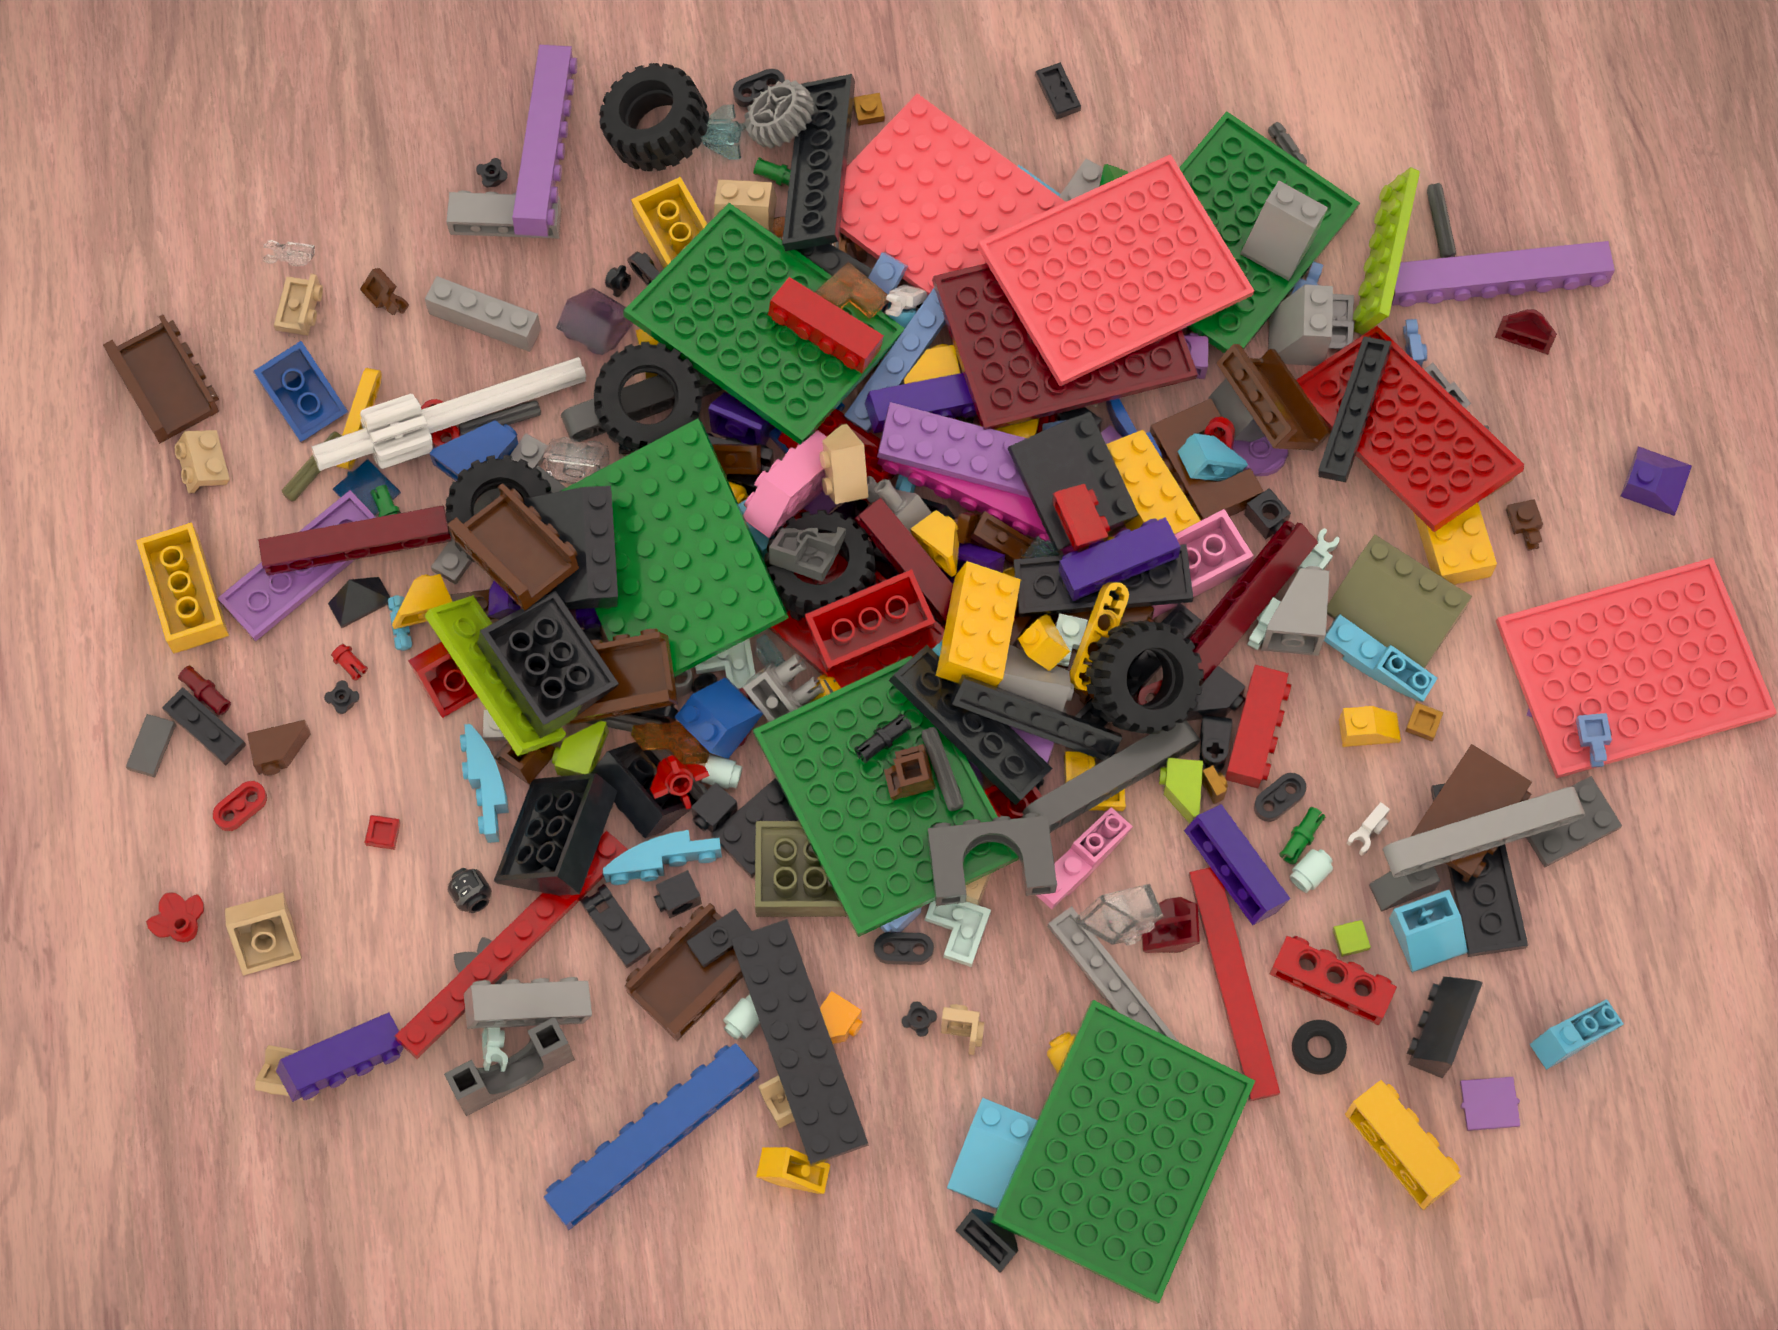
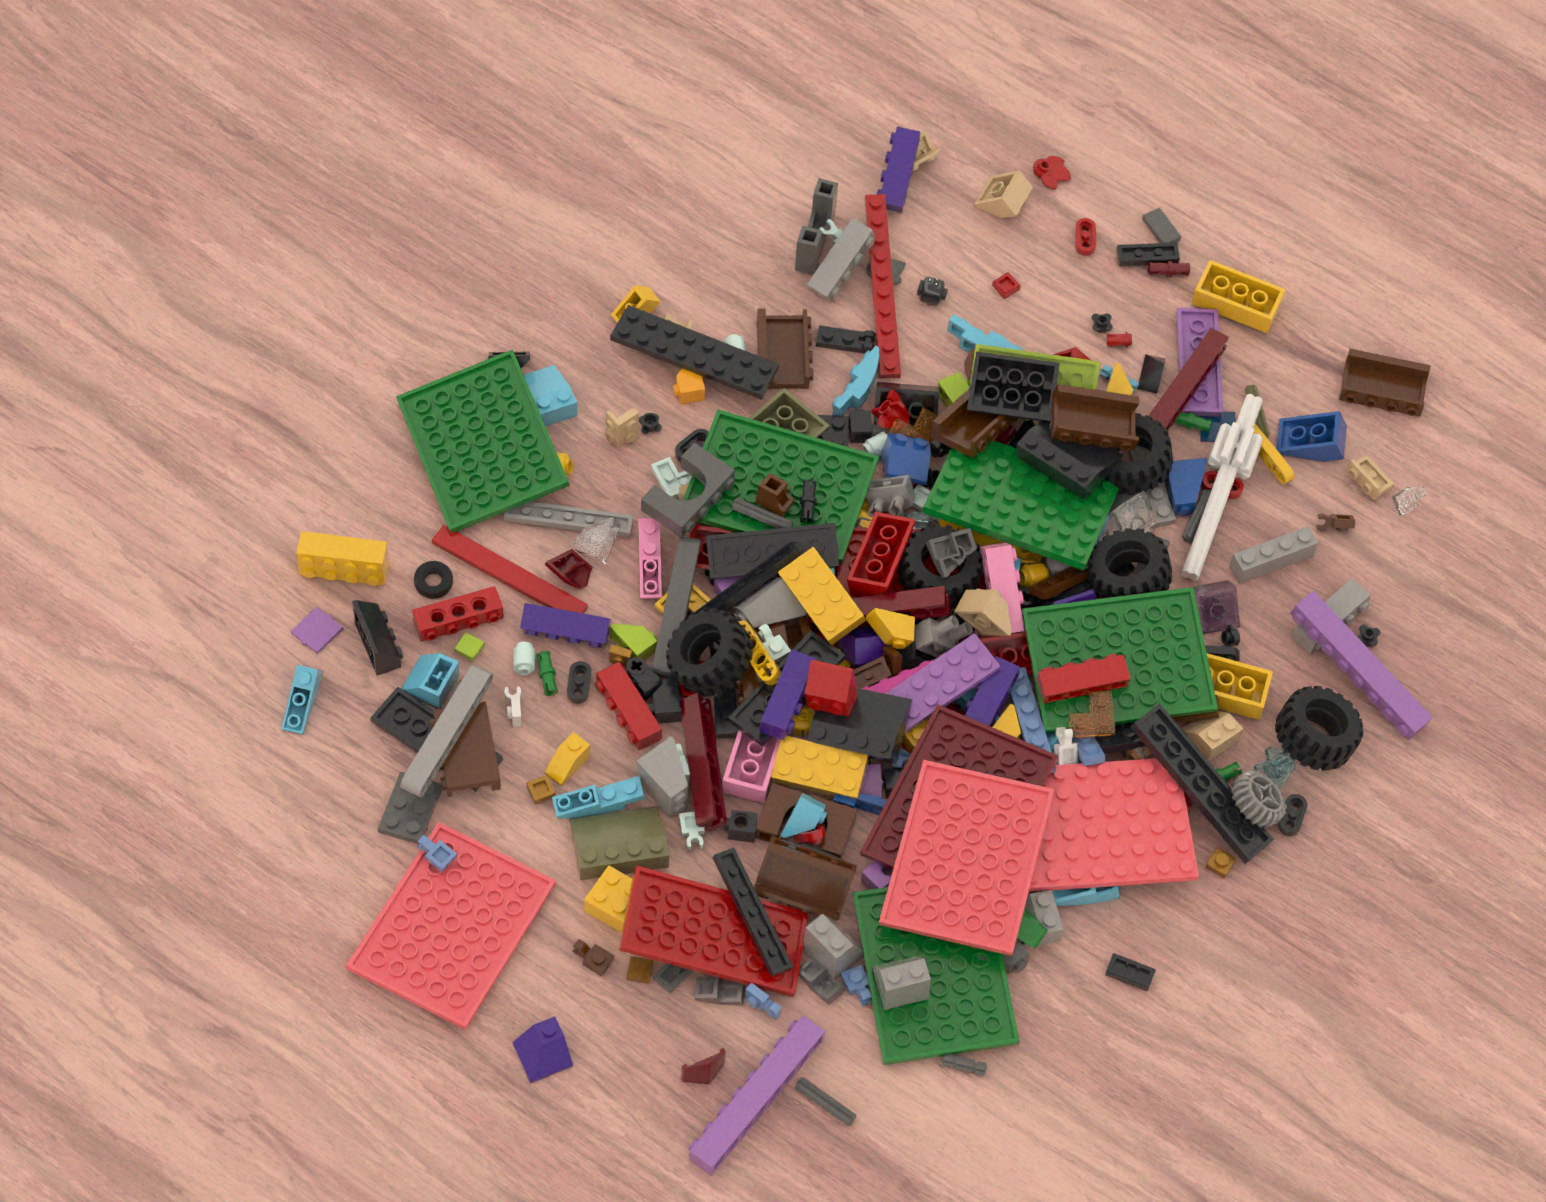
camera: 130 degrees right, 10 degrees down
(201, 459) = (1312, 365): tan bracket -> none
(277, 746) = (1102, 272): reddish brown slope -> none
(557, 834) = (918, 342): black slope -> none
(651, 1136) = (718, 266): blue brick -> none
(677, 895) = (831, 374): black brick -> none
(716, 938) = (788, 371): black plate -> none
(1044, 643) = (782, 621): yellow slope -> none
(1386, 251) = (839, 1041): lime plate -> none

